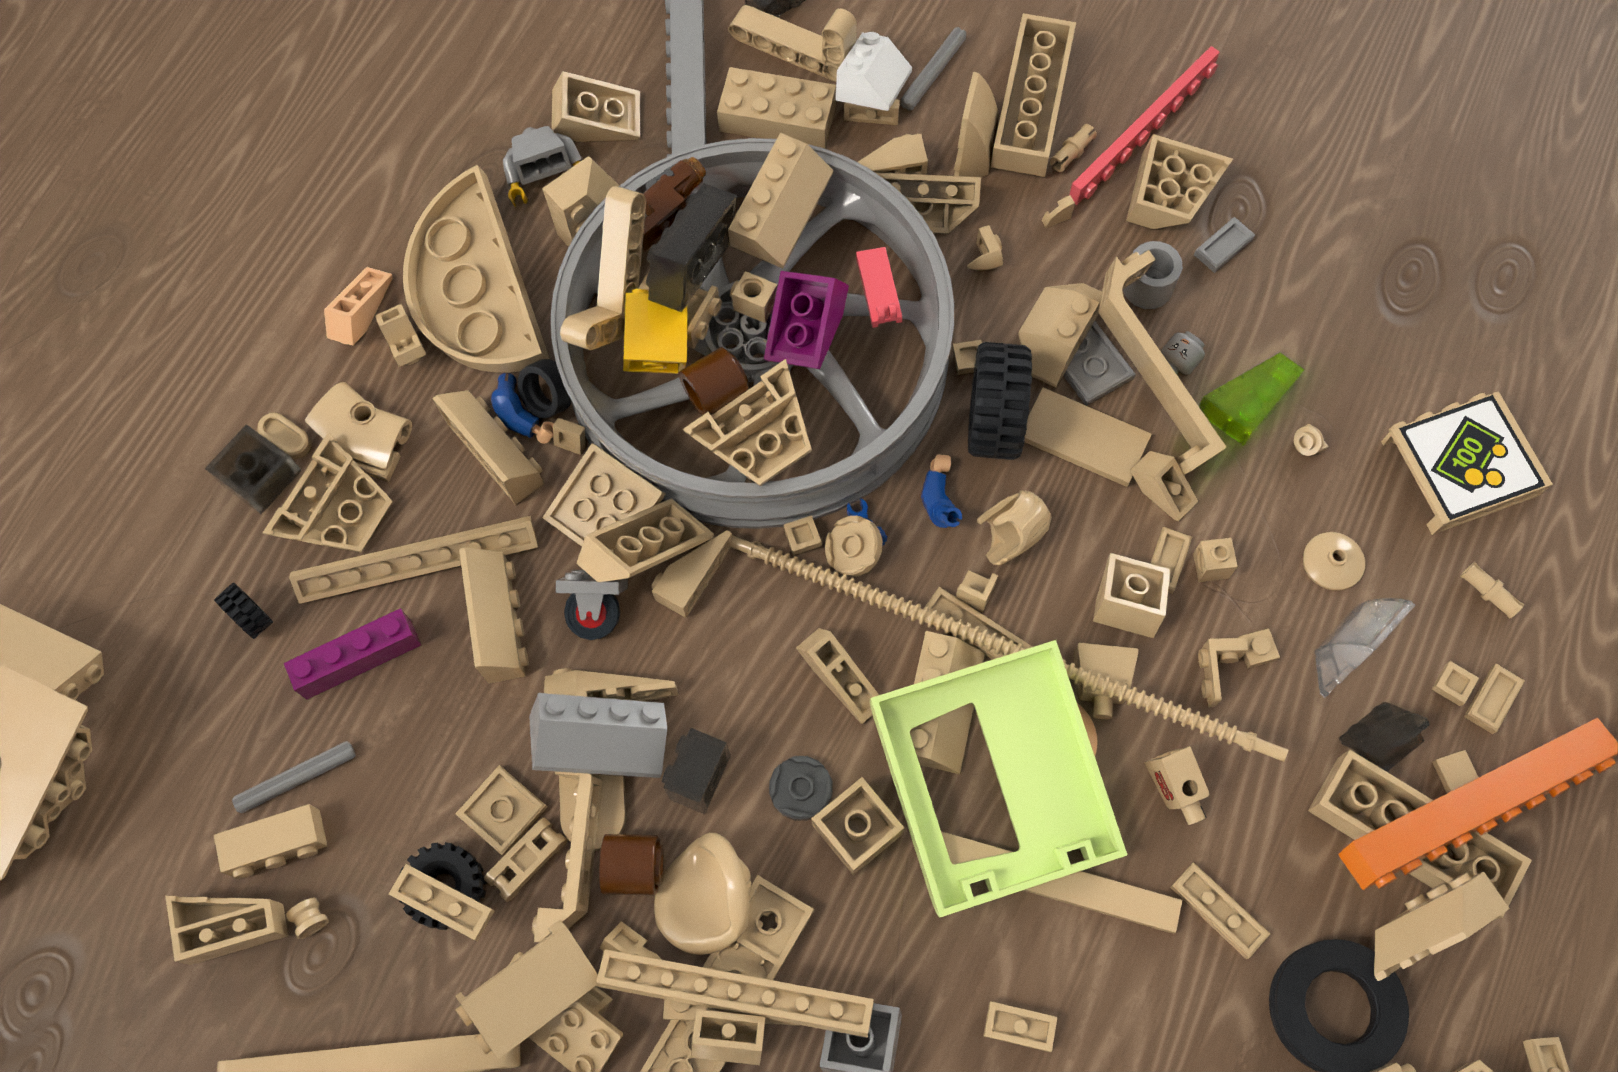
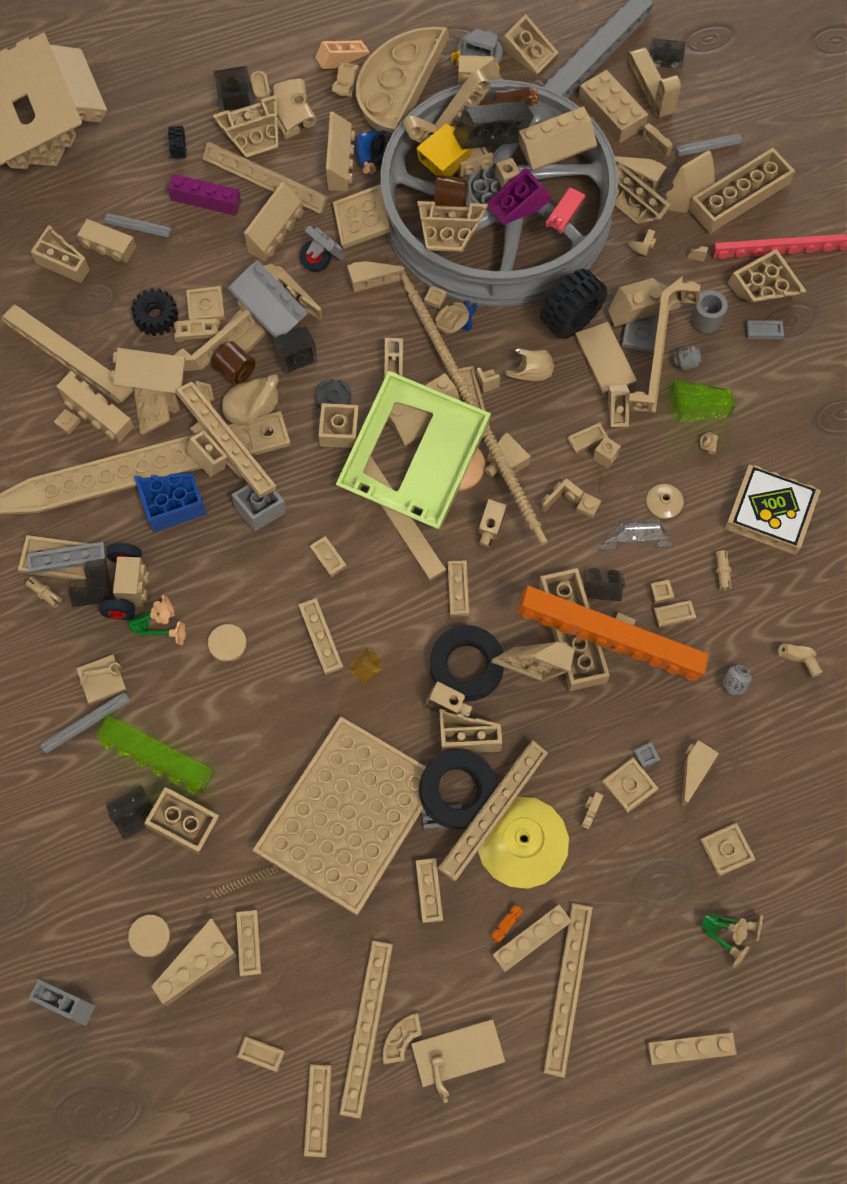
camera: 40 degrees right, 0 degrees up
(307, 918) = (93, 281): tan wheel -> none
(441, 902) = (147, 313): tan plate -> none
(569, 436) = (375, 175): tan plate -> none
(641, 542) = (359, 237): tan slope -> none
(872, 73) = (671, 121): white slope -> none
(936, 503) = (509, 326): blue arm -> none
(1073, 147) = (737, 230): tan pin -> none
(1132, 595) = (552, 435): tan slope -> none

